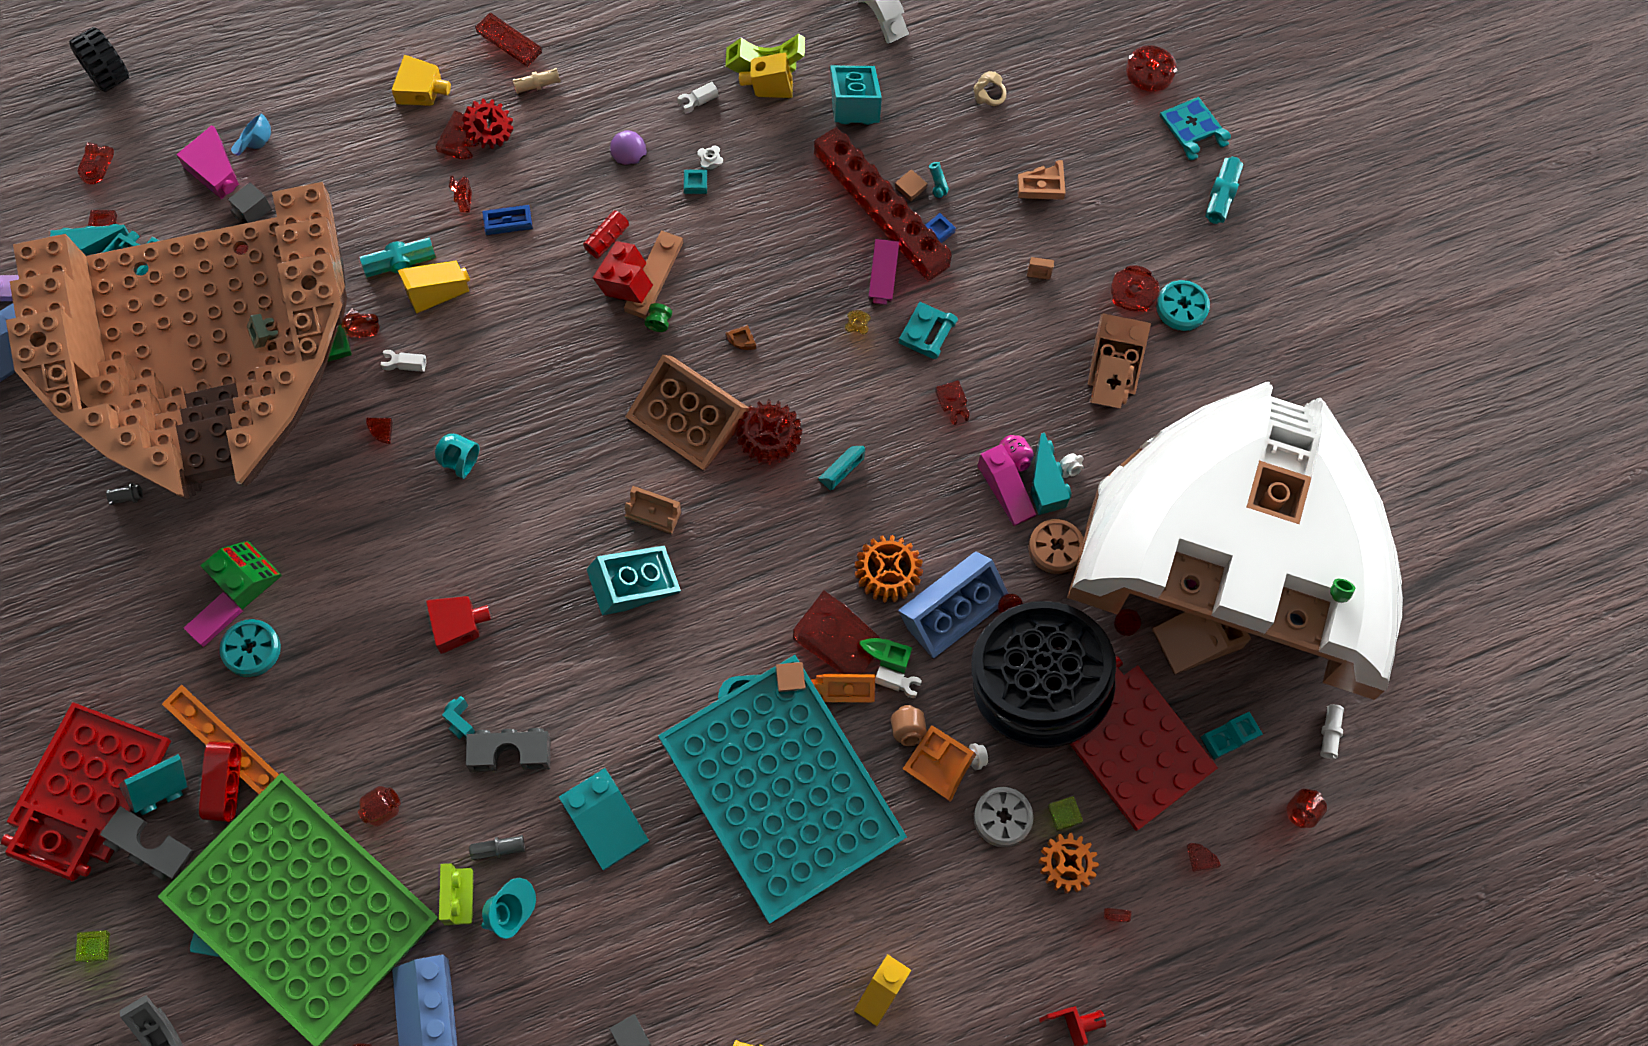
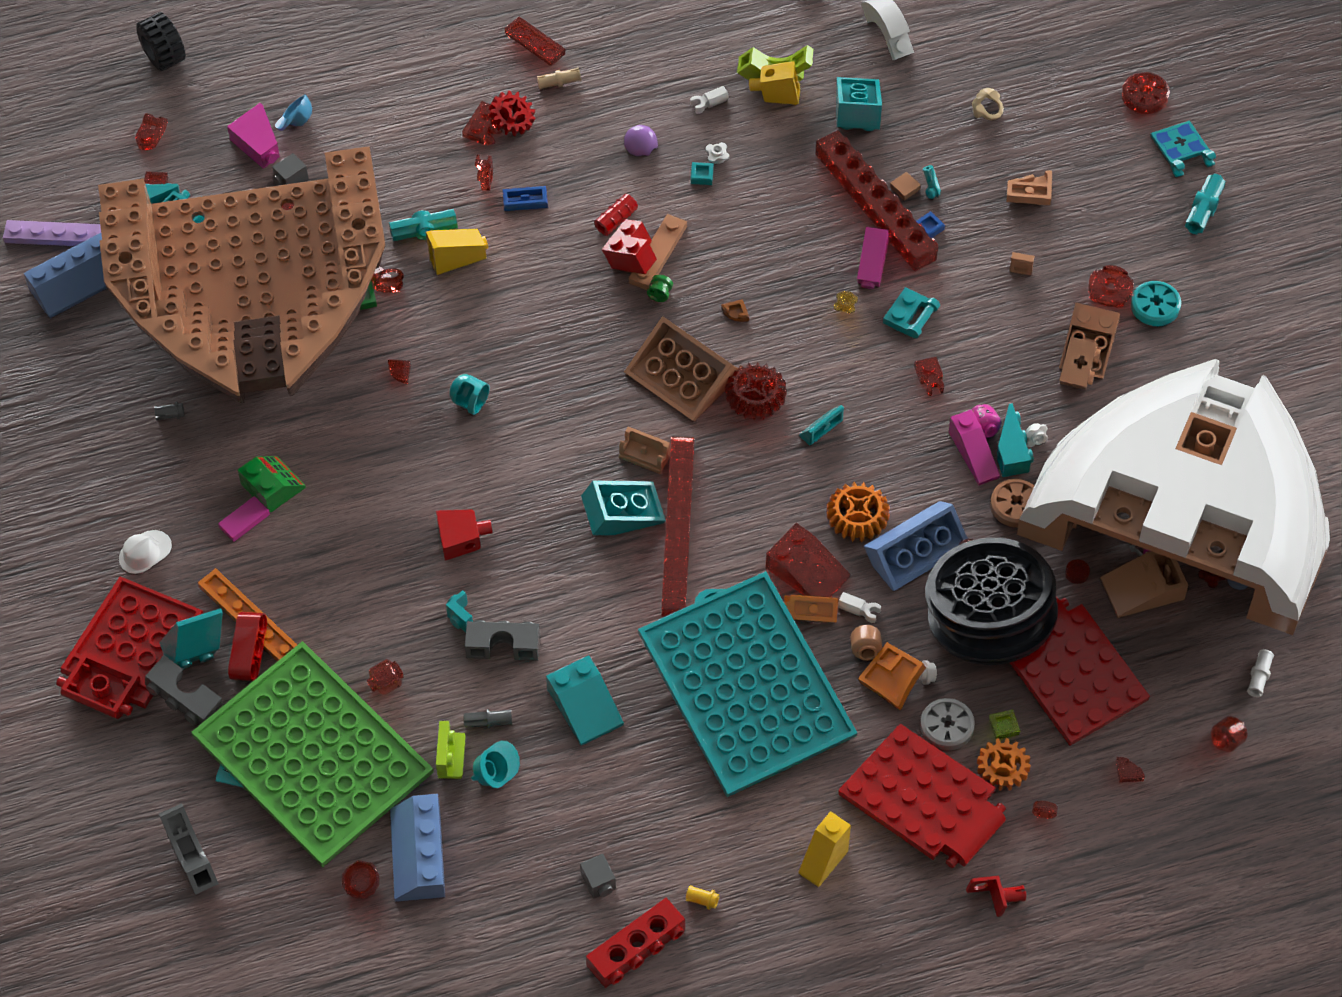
camera: 10 degrees right, 10 degrees down
(92, 946) = (131, 772): clear neon green plate -> none
(102, 665) = (144, 551): none -> white piece
(236, 641) = (276, 530): teal wheel -> none
(258, 332) = (301, 273): sand green tile -> none
(404, 361) = (424, 314): white bar -> none
(418, 83) = (449, 75): yellow torso -> none
(694, 600) = (678, 525): none -> clear red beam
(790, 677) = (760, 588): nougat tile -> none
(891, 654) = (854, 583): green plate -> none
(986, 910) = (925, 798): none -> red plate
(1231, 735) = (1164, 673): teal slope -> none
(1342, 590) = (1252, 518): green hinge -> none

